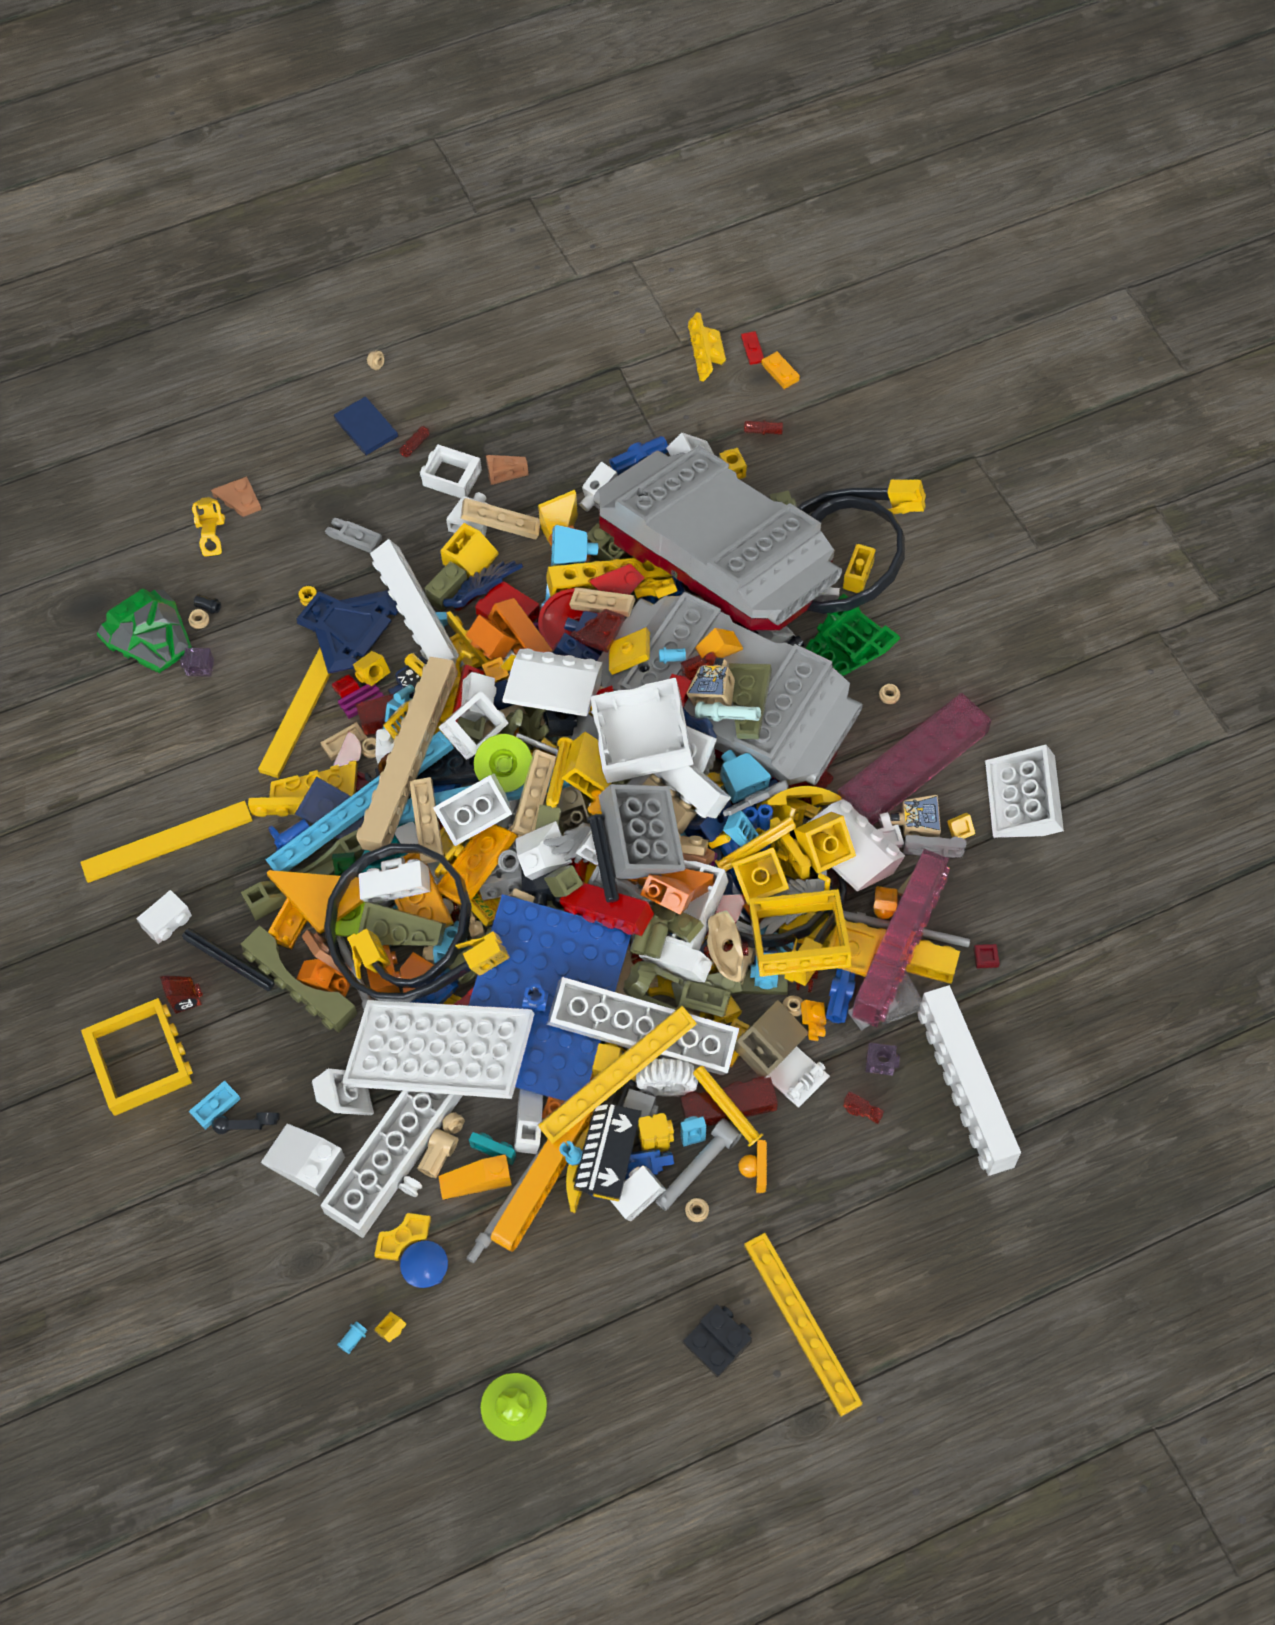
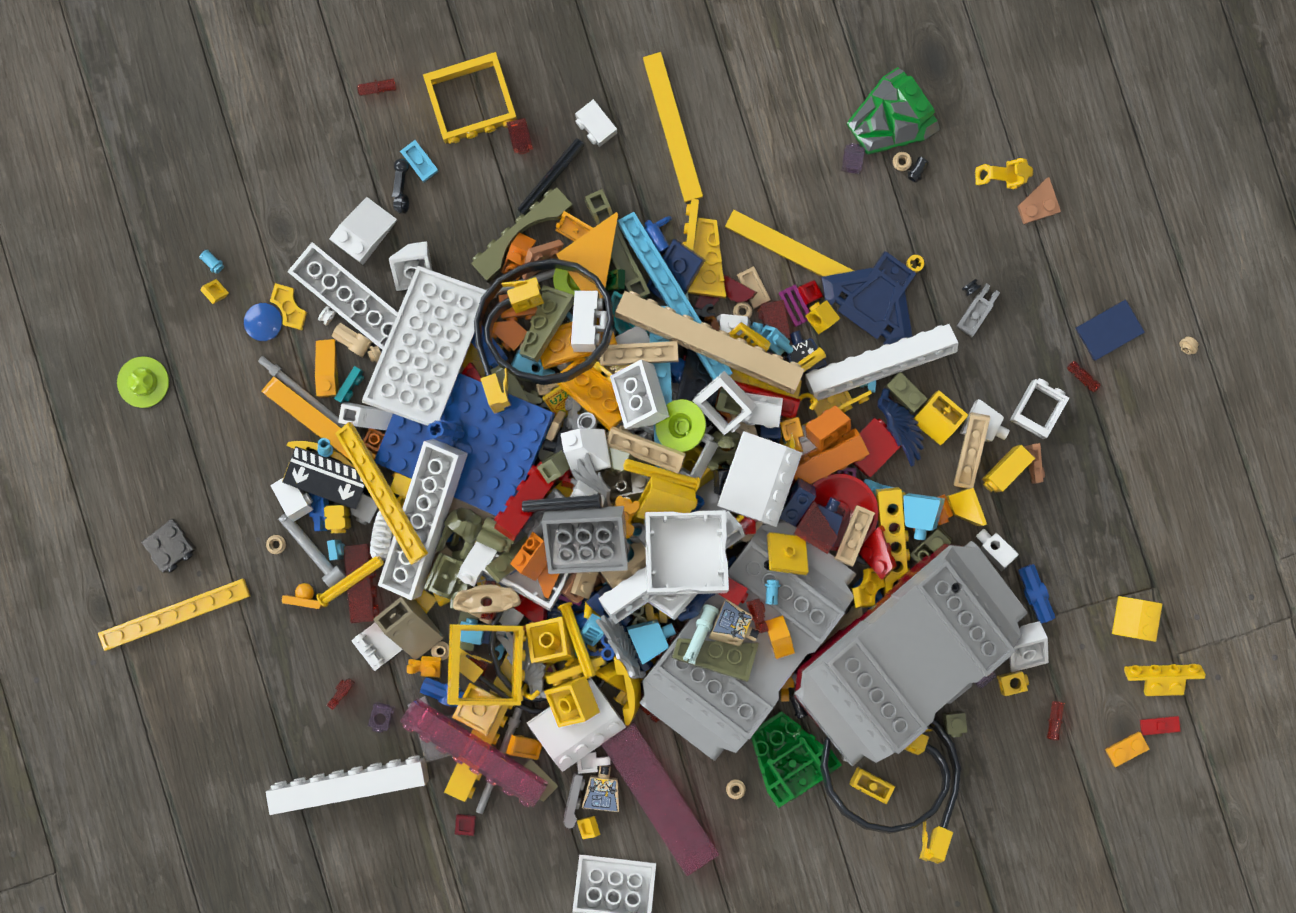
camera: 90 degrees right, 25 degrees up
(124, 1166) = (376, 87): none -> clear red axle
(330, 542) = (971, 287): none -> black bush
(515, 487) = (1007, 469): none -> yellow brick
(651, 372) = (1137, 618): none -> yellow slope

